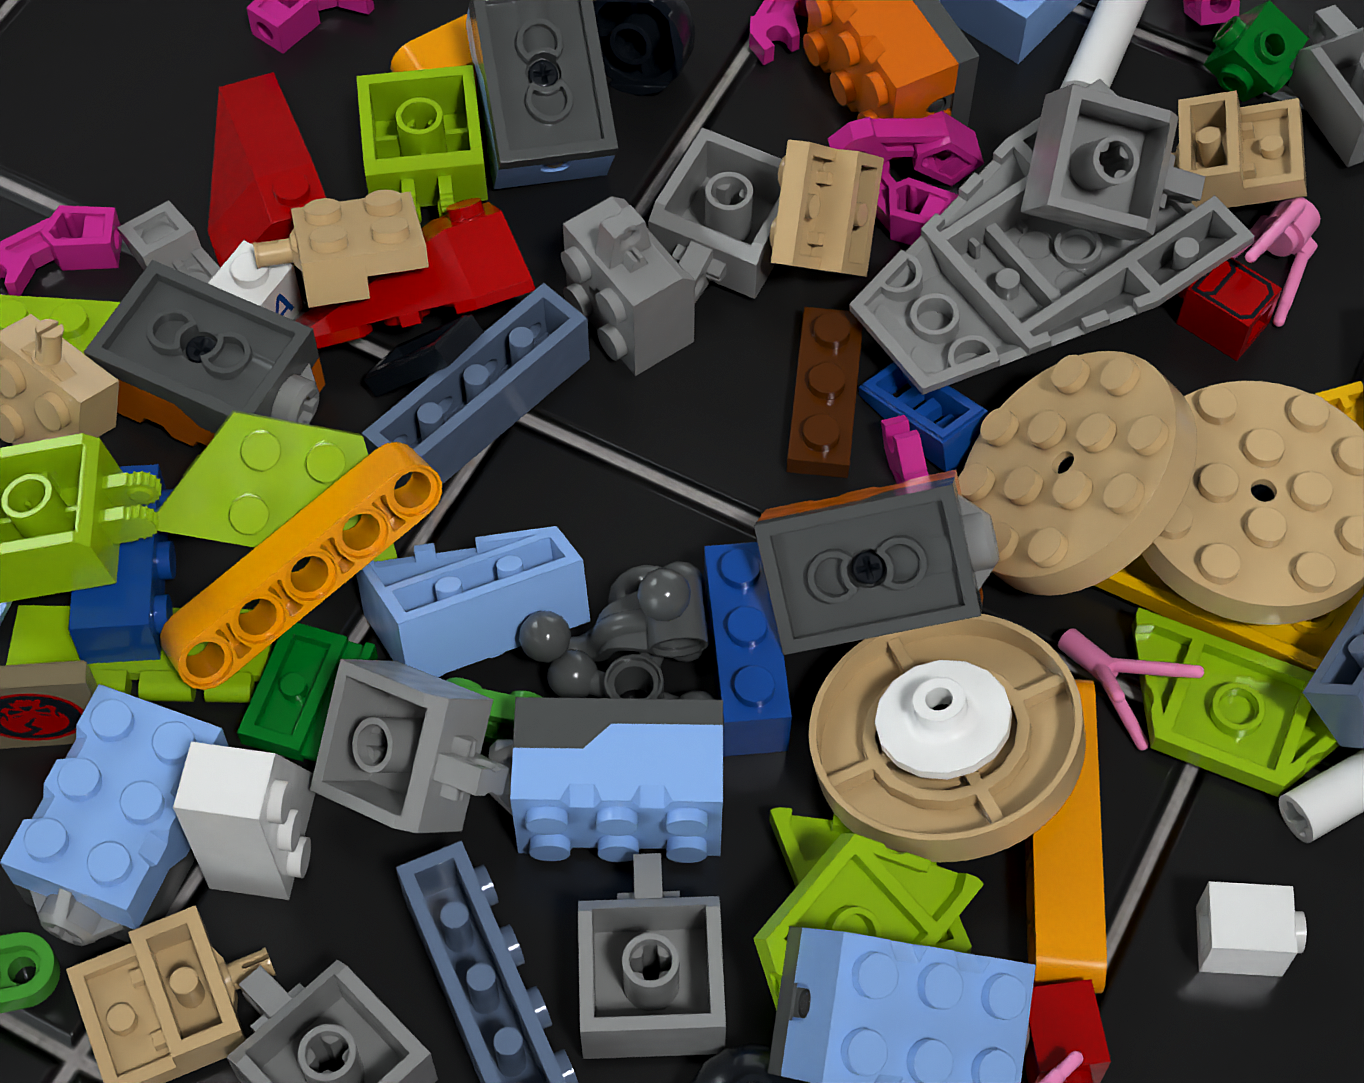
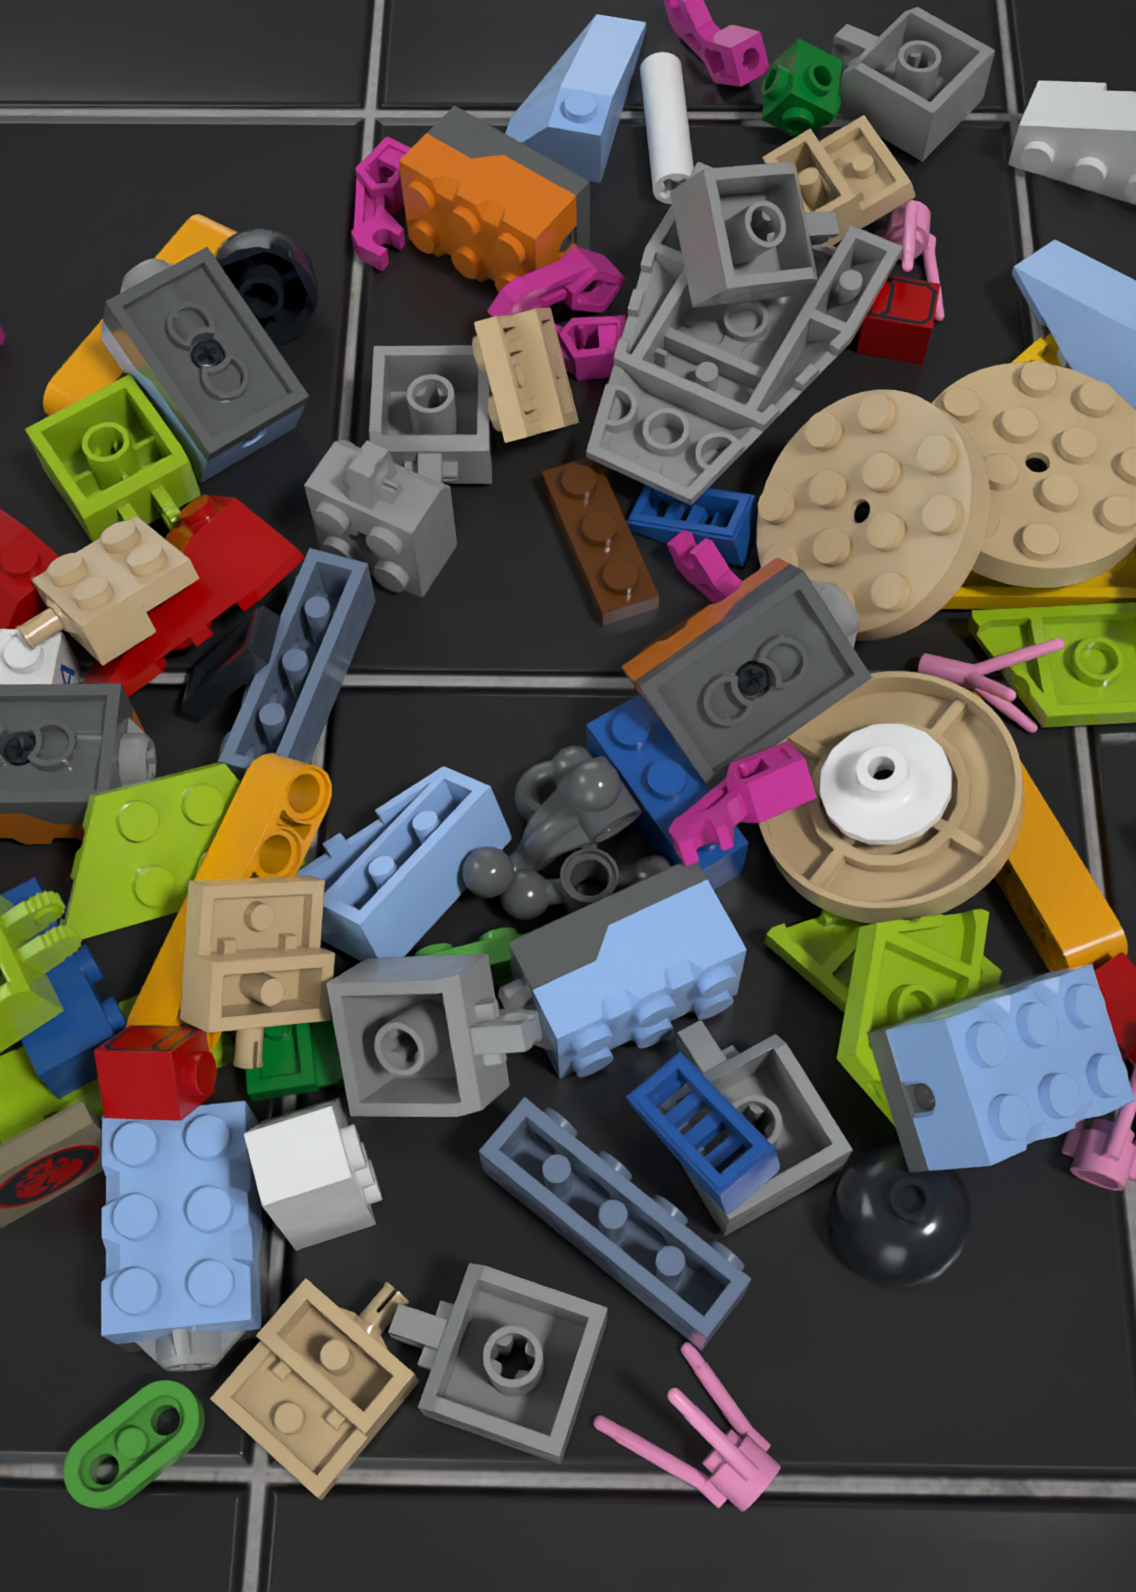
camera: 25 degrees left, 5 degrees up
(159, 667) = (155, 1072): none -> red brick
(294, 610) = (255, 958): none -> tan plate
(610, 987) = (739, 1179): none -> blue slope
(811, 669) = (751, 793): none -> dark pink piece

